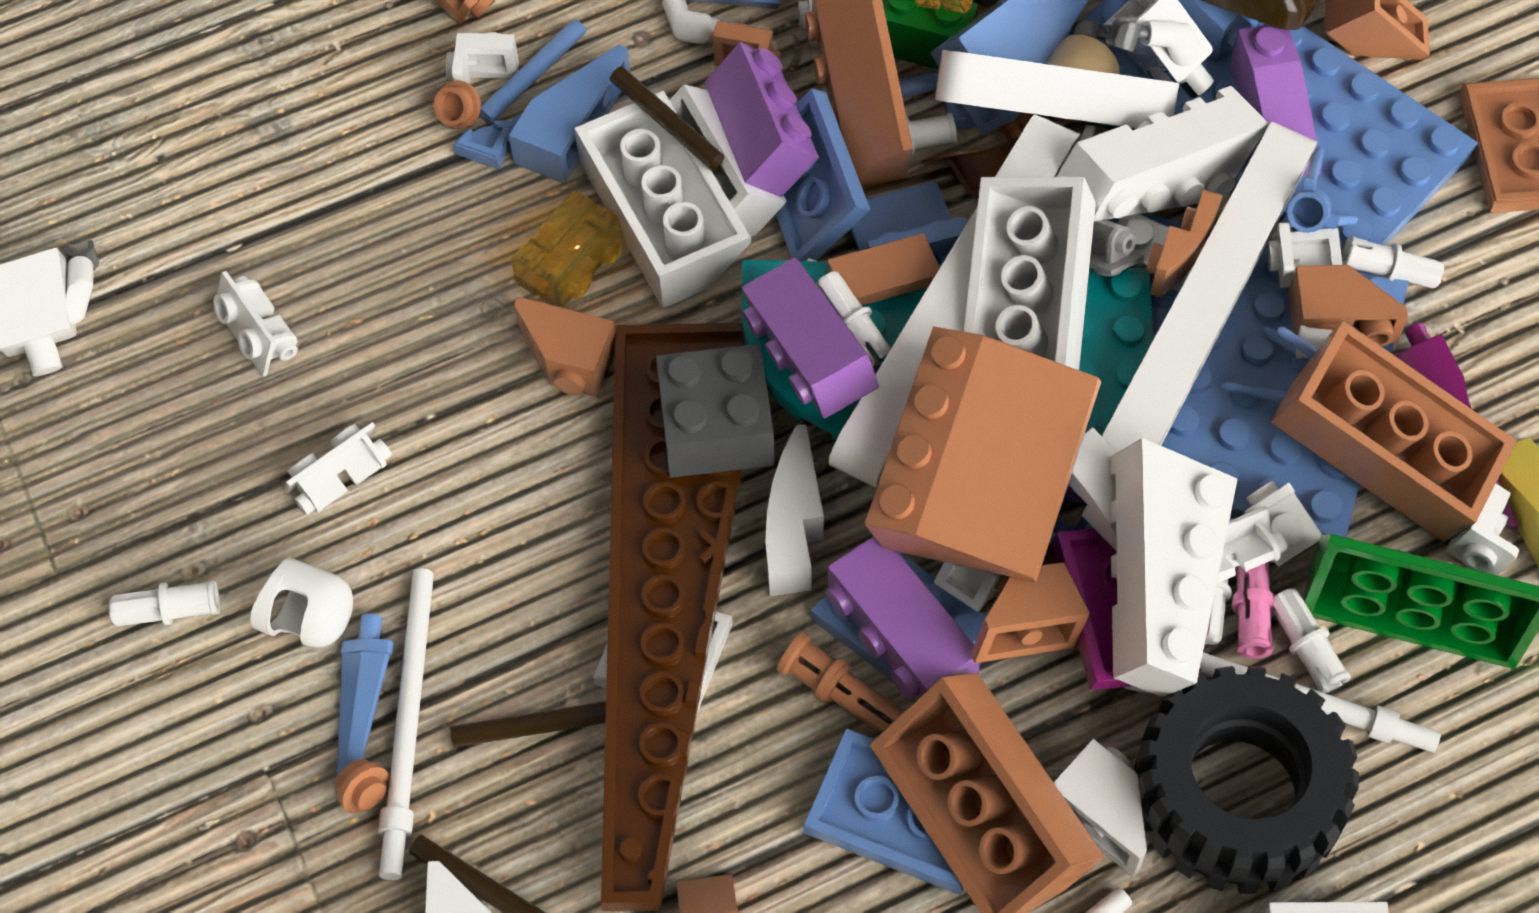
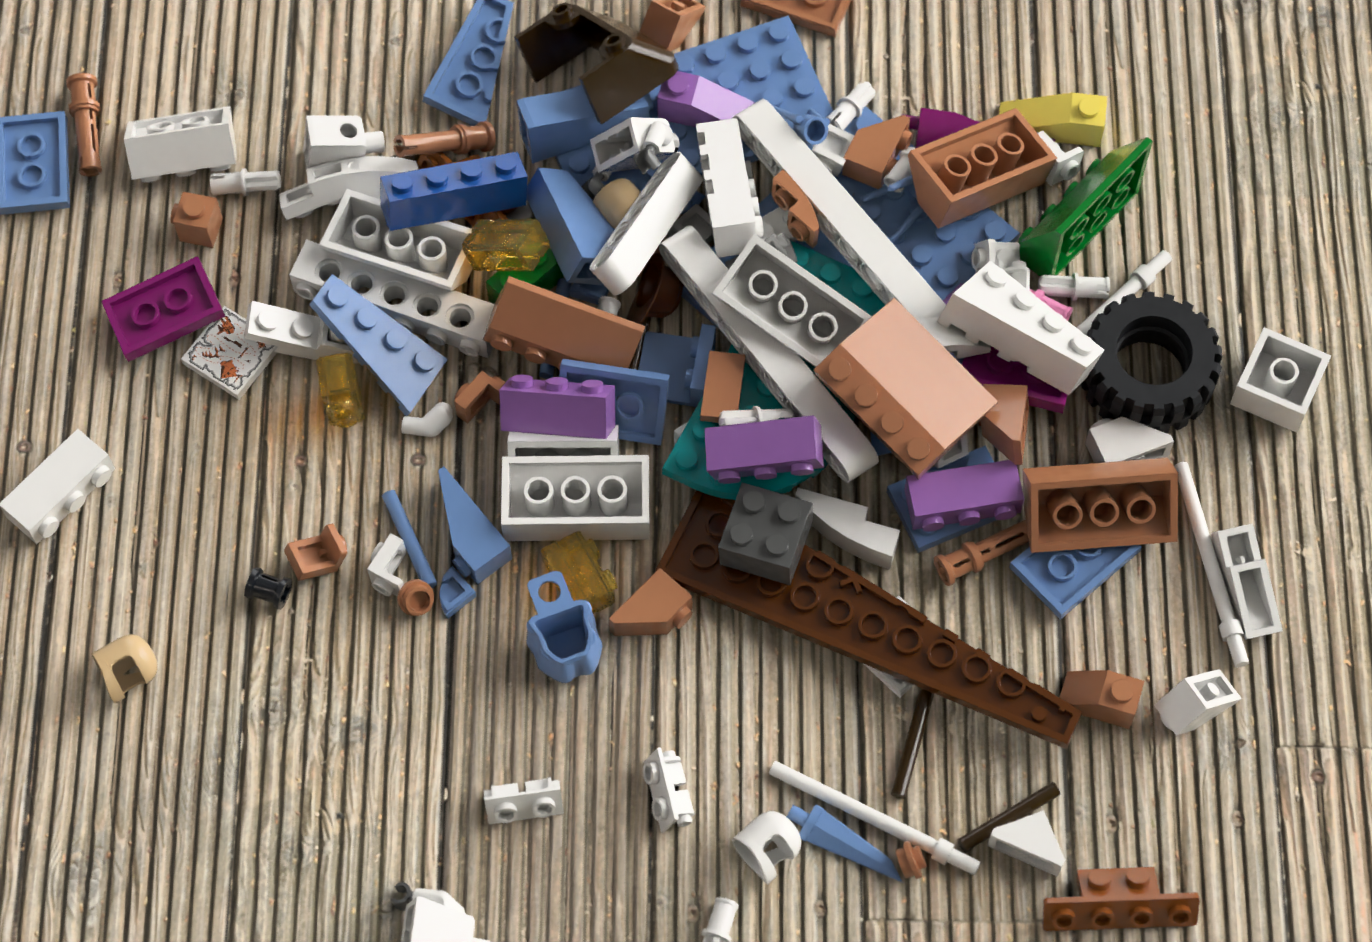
camera: 65 degrees left, 5 degrees up
(473, 264) = (562, 633): none -> medium blue piece
(667, 118) = (530, 463): dark brown bar -> none

